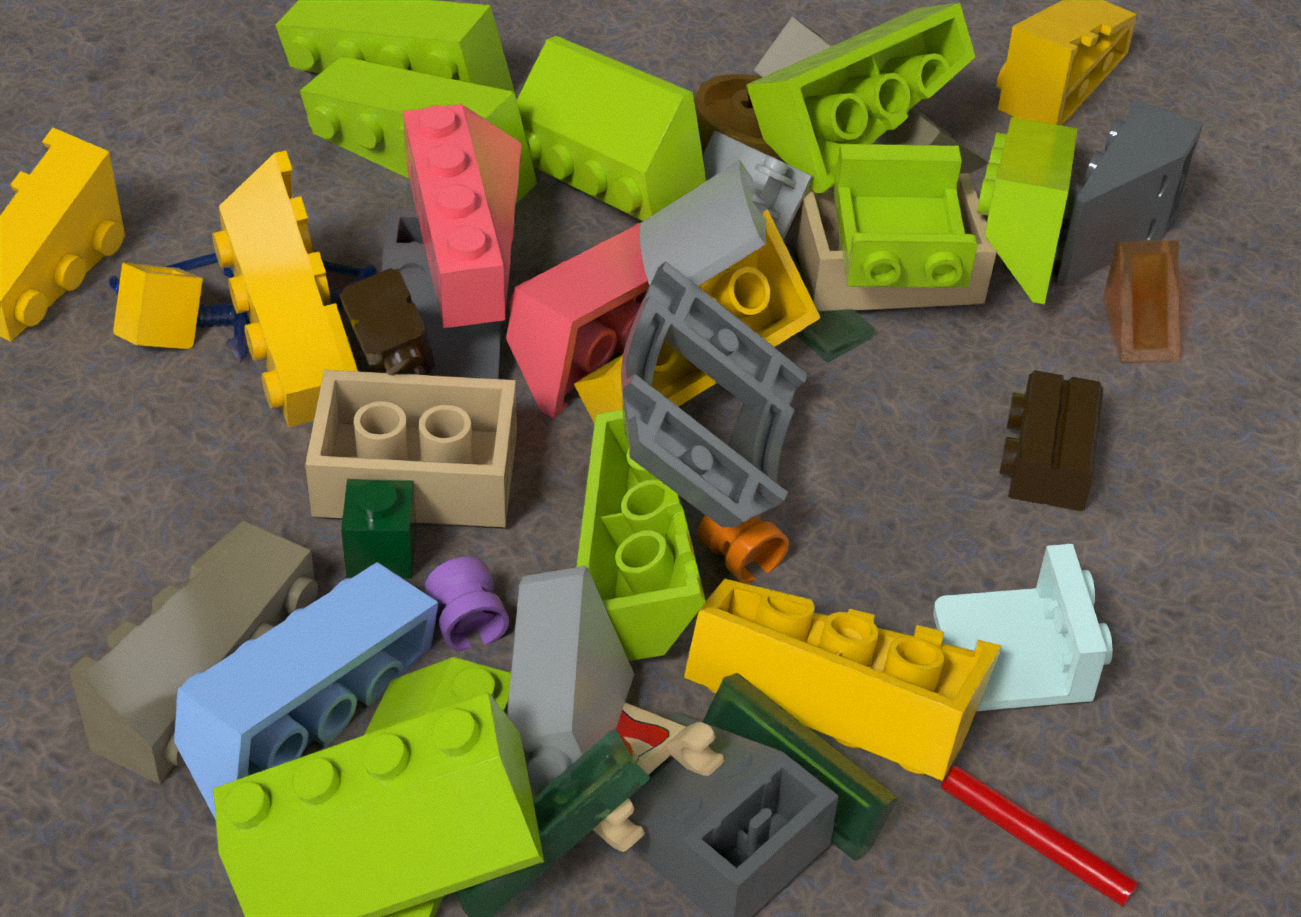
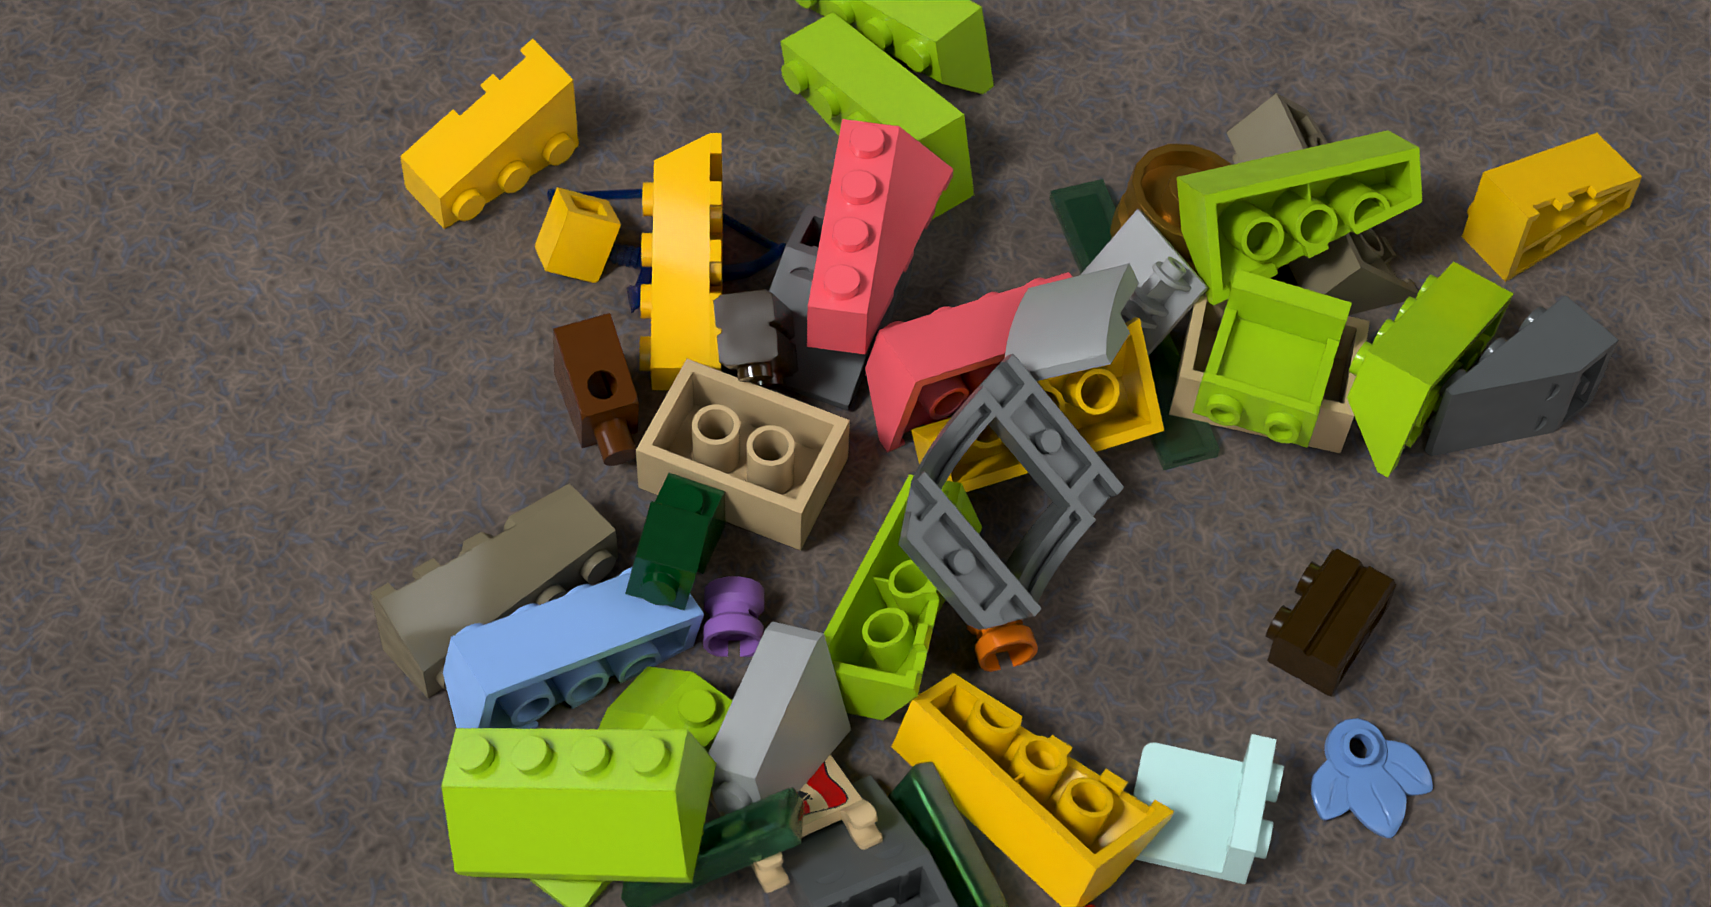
camera: 20 degrees right, 10 degrees up
(234, 425) = (597, 387): none -> reddish brown torso
(382, 550) = (667, 556): none -> dark green brick
(610, 129) = (1041, 178): lime slope -> none
(1144, 300) = (1488, 504): clear orange slope -> none
(1163, 570) = (1368, 786): none -> medium blue plate

